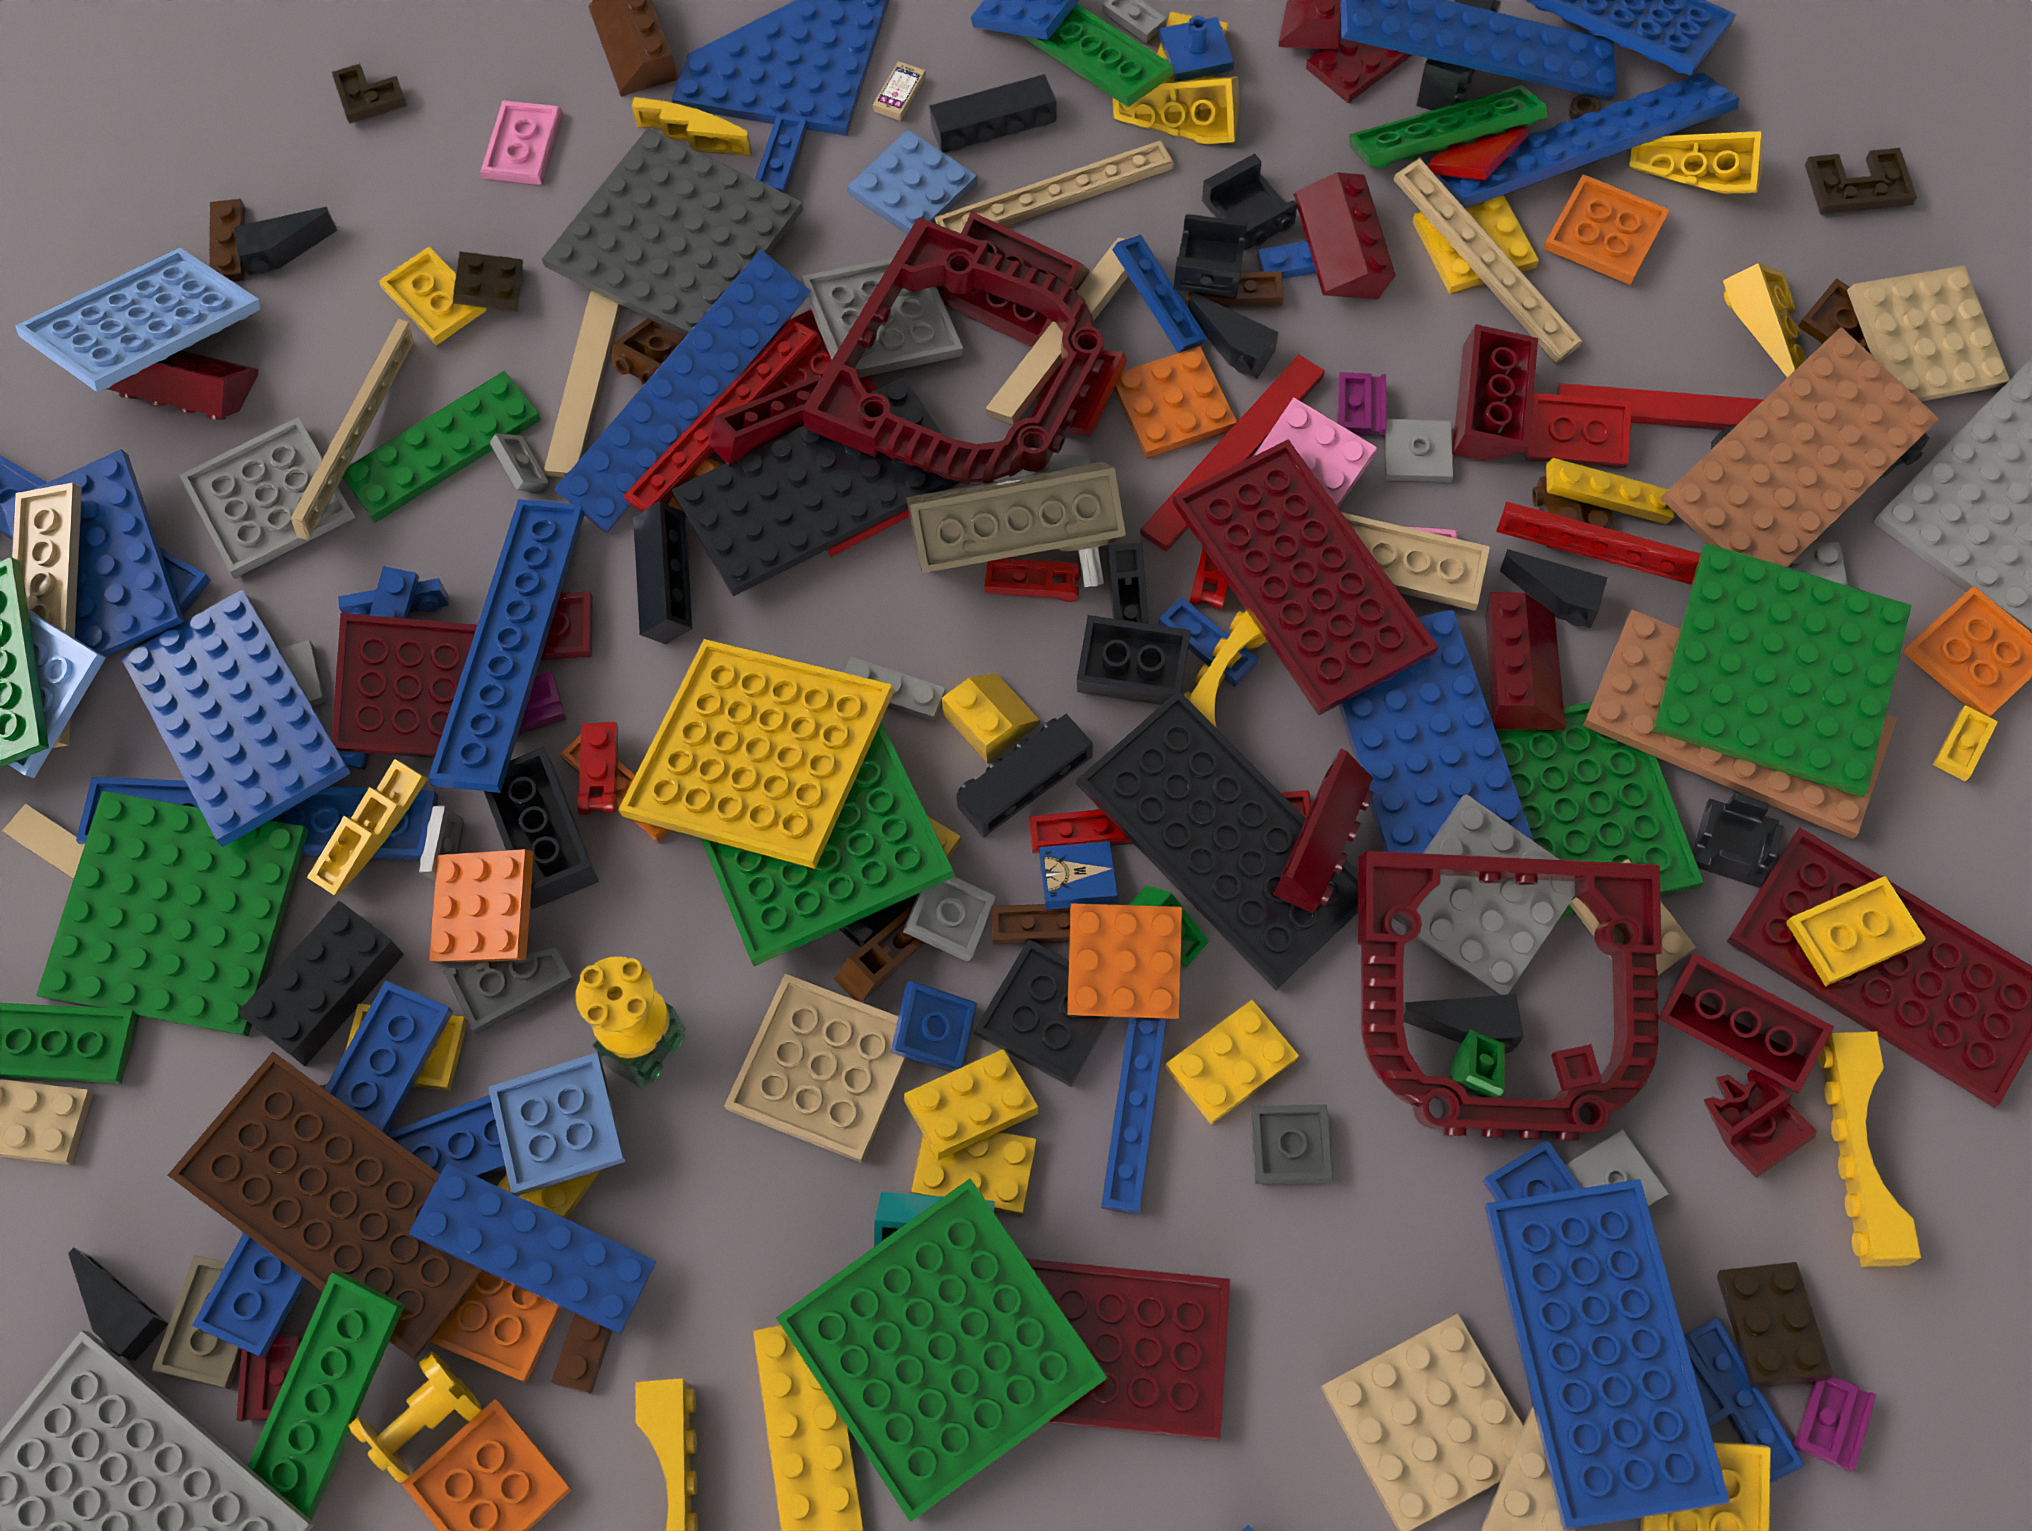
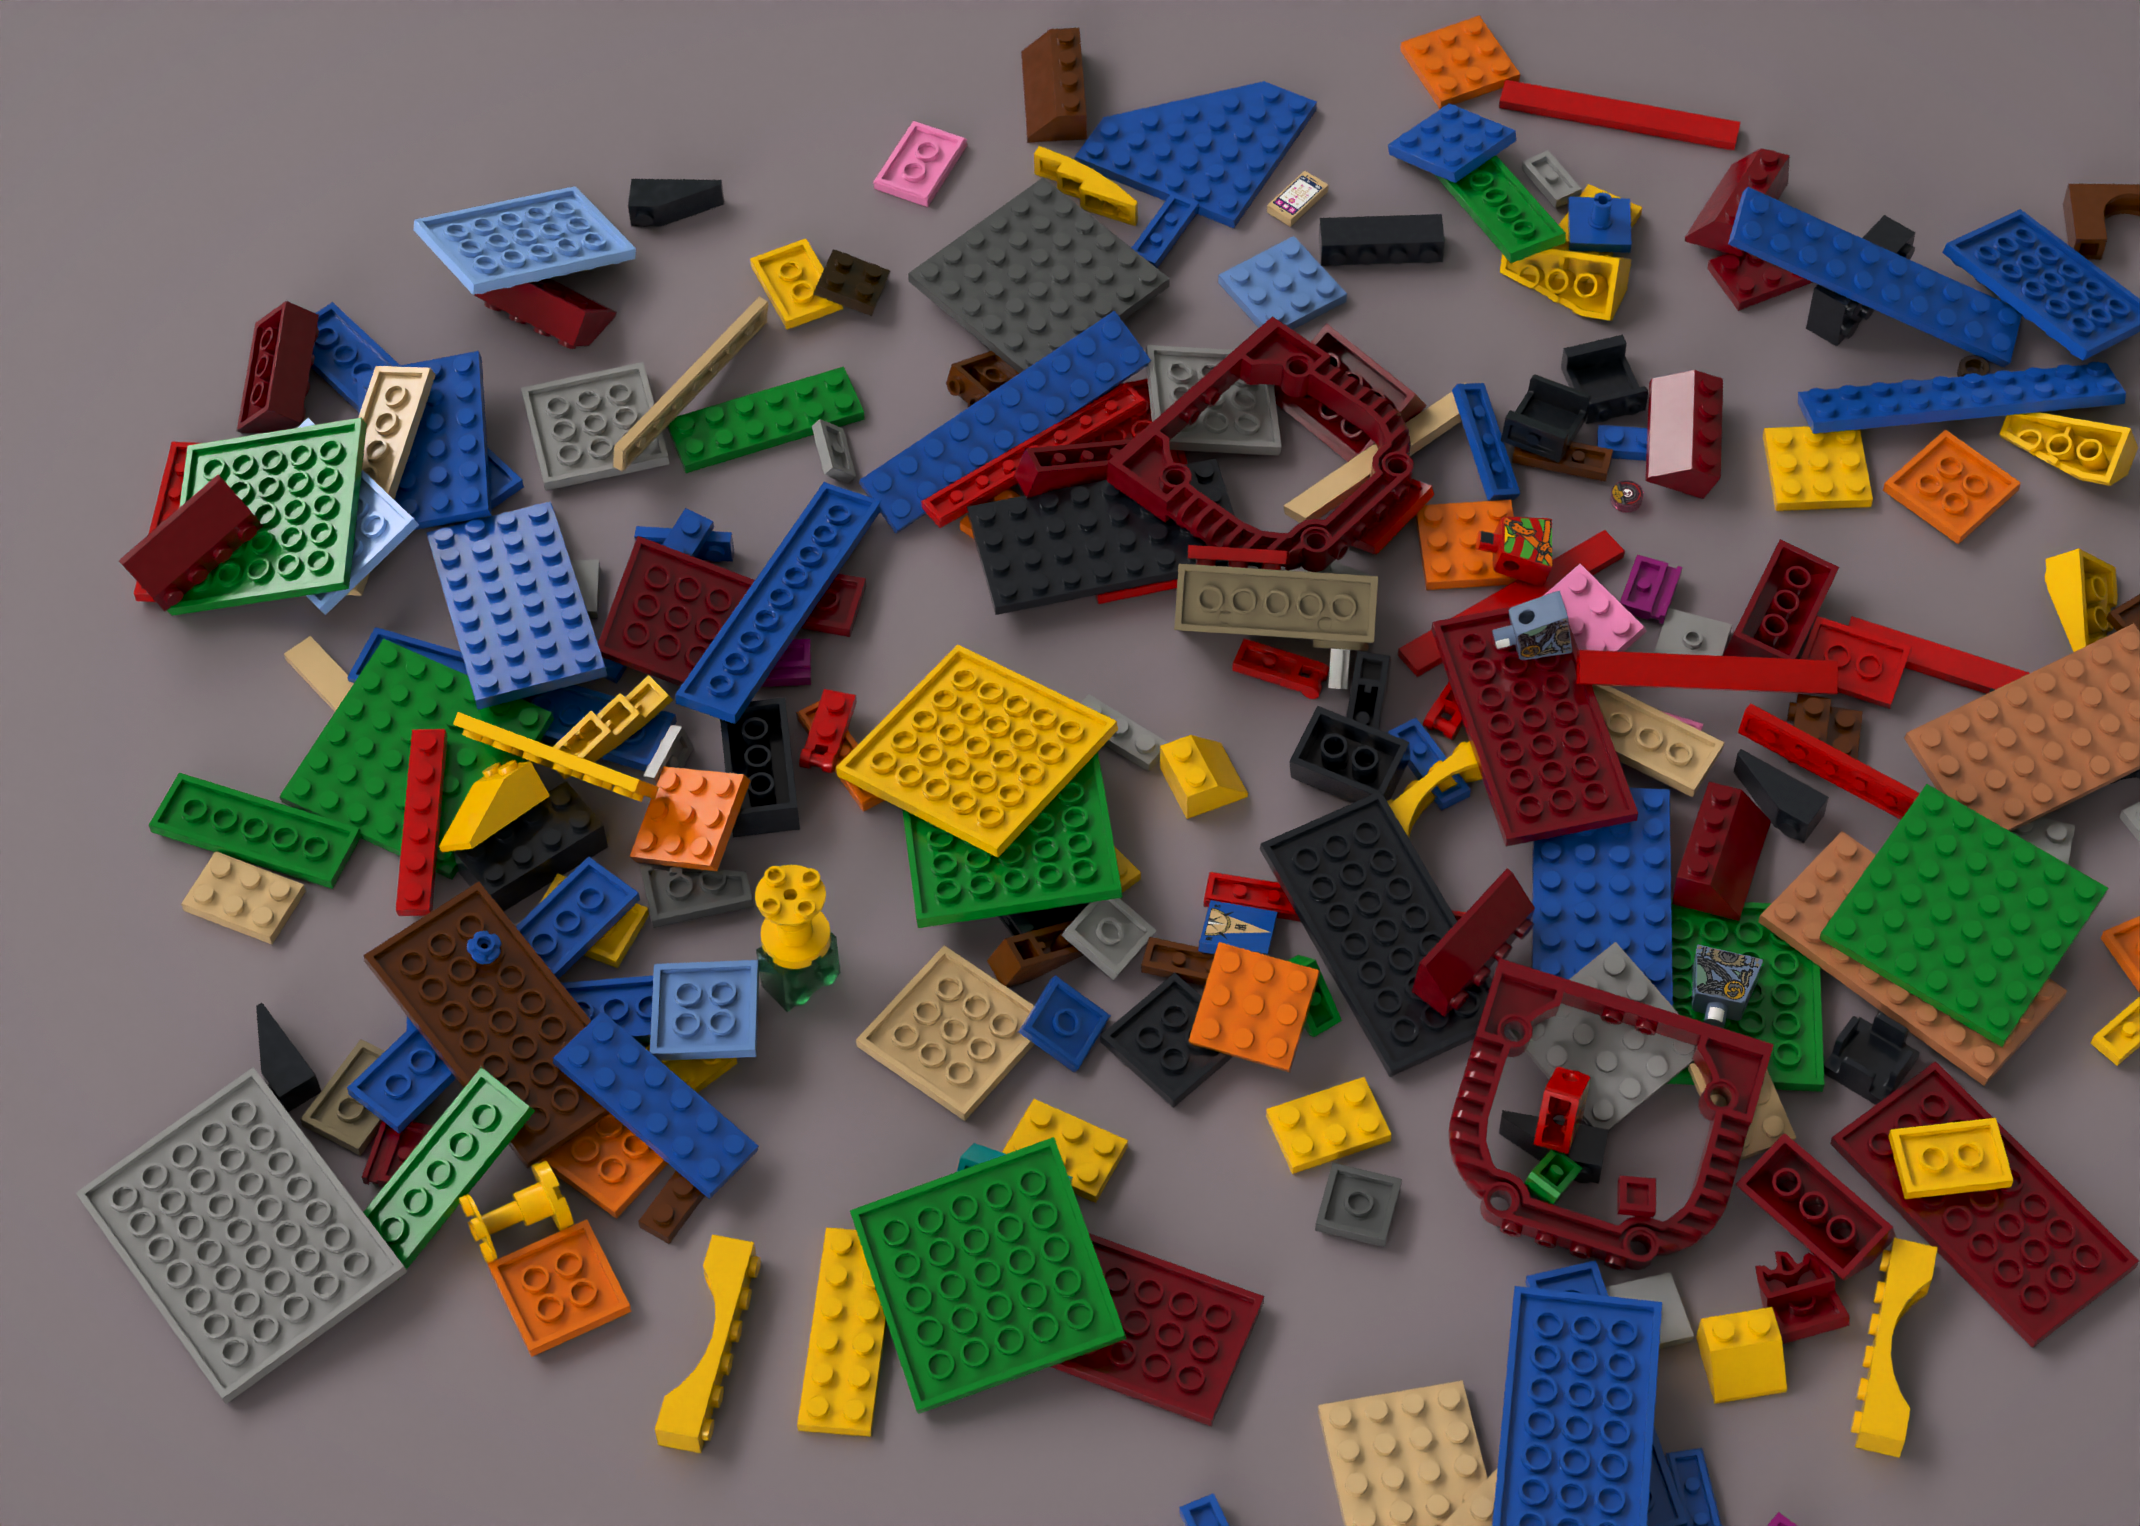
camera: 15 degrees right, 10 degrees down
(196, 988) = (421, 822): none -> red plate
(222, 240) = (617, 187): reddish brown plate -> none
(267, 952) = (493, 803): none -> yellow slope
(305, 1135) = (487, 955): none -> blue plate
(328, 884) = (547, 755): none -> yellow plate
(364, 99) = (784, 91): dark brown plate -> none
(583, 385) = (913, 395): tan tile -> none
(662, 573) = (936, 578): black brick -> none
(964, 478) = (1238, 556): none -> red plate
(970, 1104) = (1077, 1094): yellow plate -> none
(1024, 774) = (1215, 834): black brick -> none
(1066, 188) = (1432, 325): tan tile -> none
(1133, 1115) = (1223, 1142): blue plate -> none
(1229, 395) = (1520, 548): none -> torso
(1237, 338) = (1548, 496): black slope -> none
(1283, 479) = (1537, 628): none -> sand blue torso
(1307, 314) = (1626, 496): none -> tile
(1447, 126) = (1824, 352): green plate -> none
(1448, 481) = (1707, 672): none -> red tile
(1471, 971) = (1565, 1096): none -> red torso
(1479, 157) = (1845, 382): red tile -> none
(1488, 260) = (1819, 487): tan tile -> none
(1575, 805) = (1723, 984): none -> torso
(1607, 491) = (1856, 721): yellow plate -> none
(1724, 1203) = (1742, 1355): none -> yellow slope
(1774, 1325) = (1750, 1465): dark brown plate -> none

